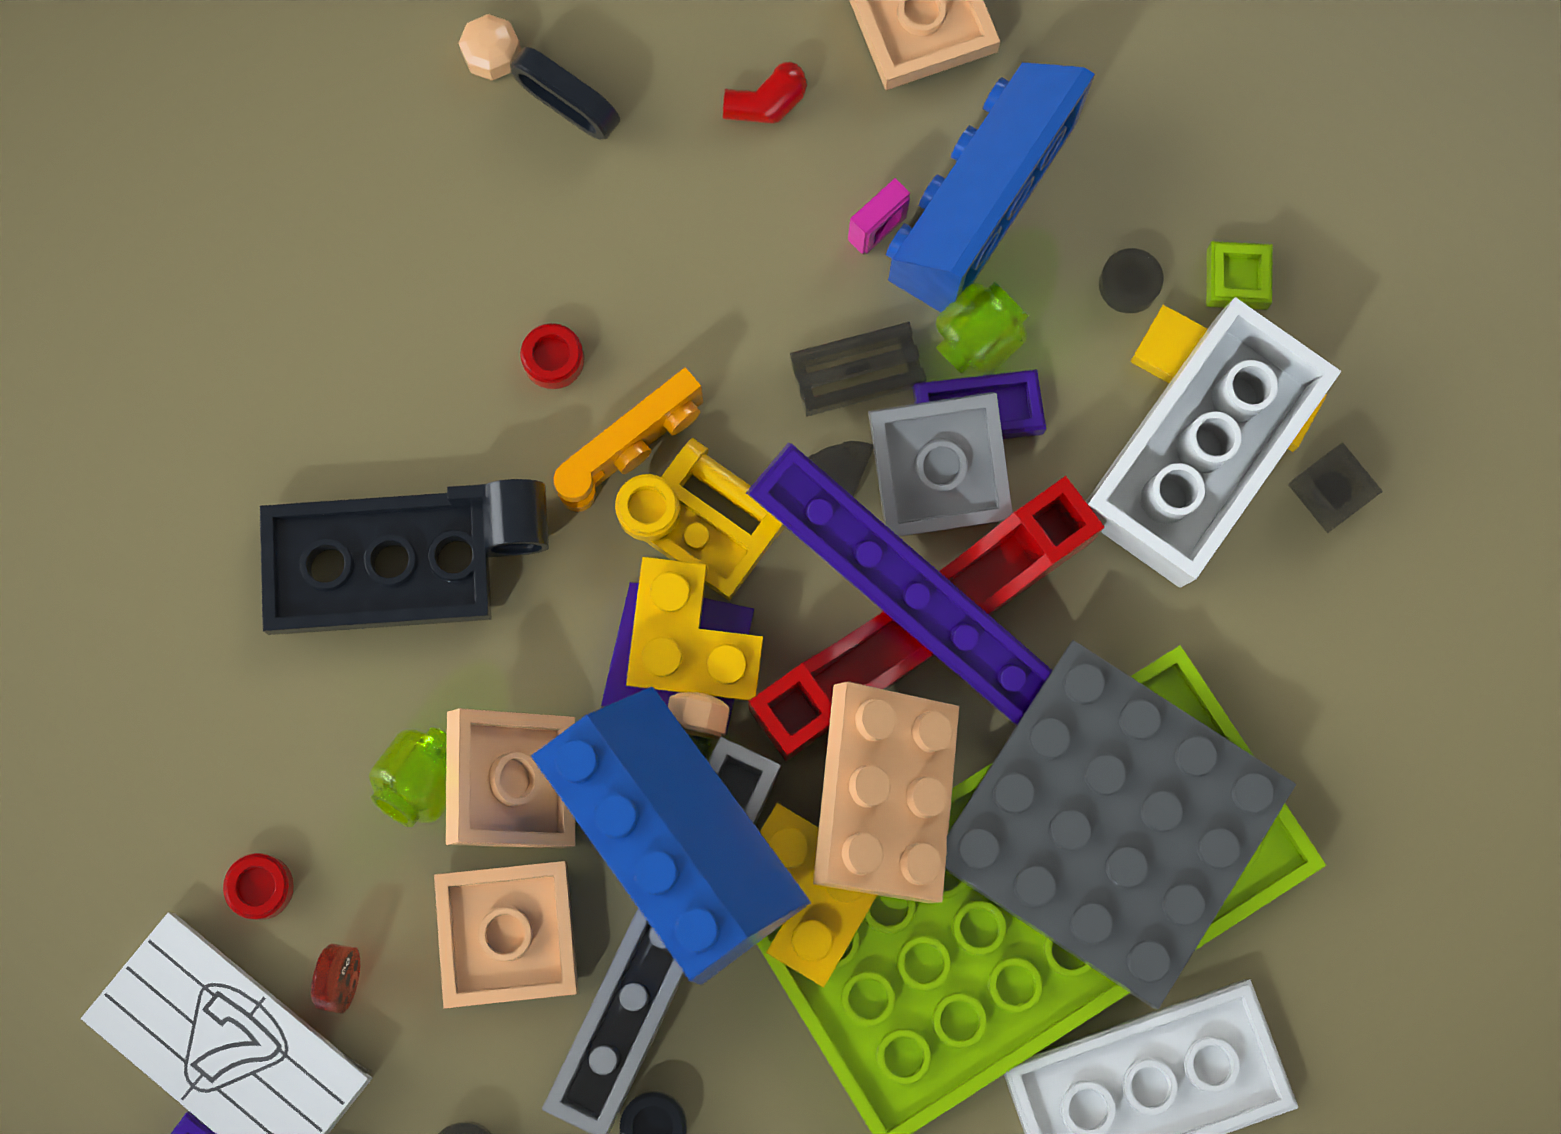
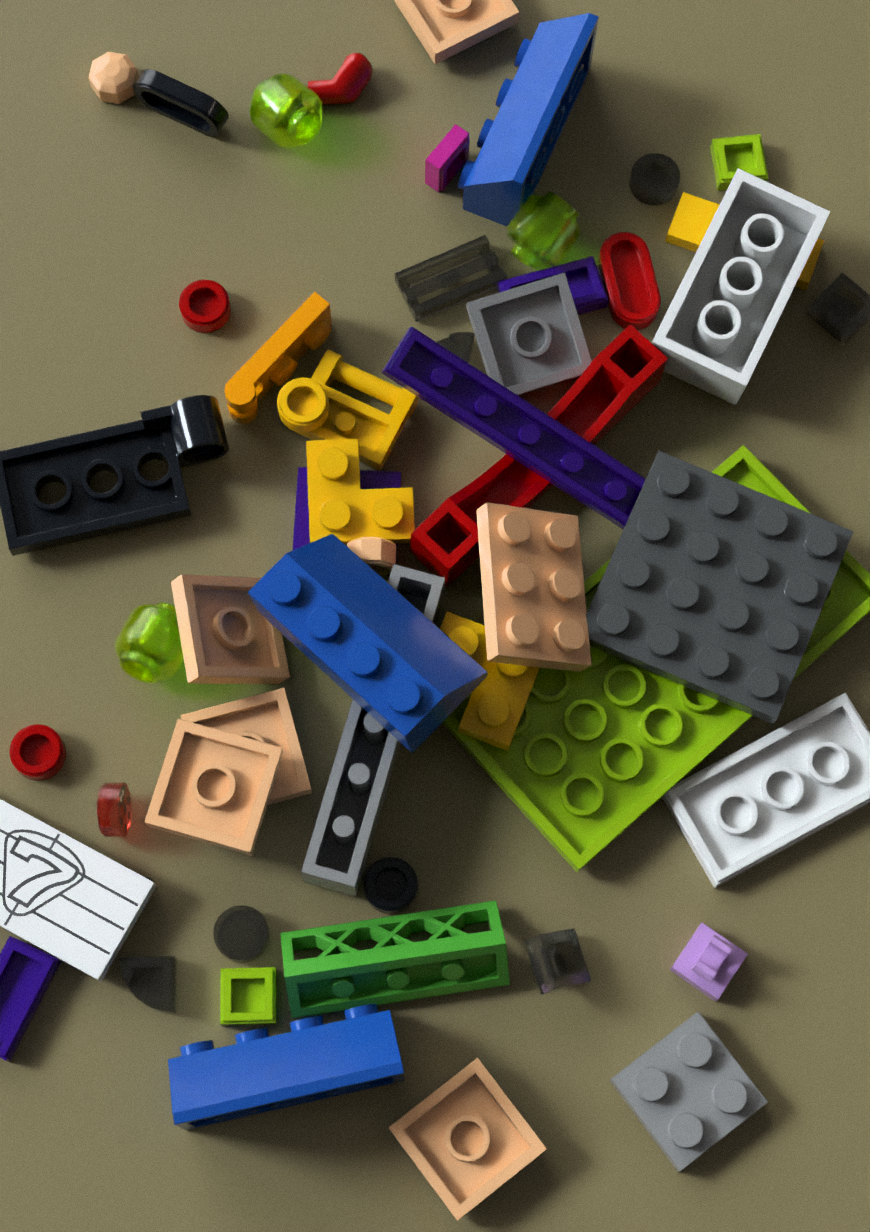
camera: 10 degrees left, 5 degrees down
(456, 978) = (214, 787): none -> light nougat plate
(691, 124) = (286, 111): none -> clear neon green head
(1076, 406) = (629, 280): none -> red tile

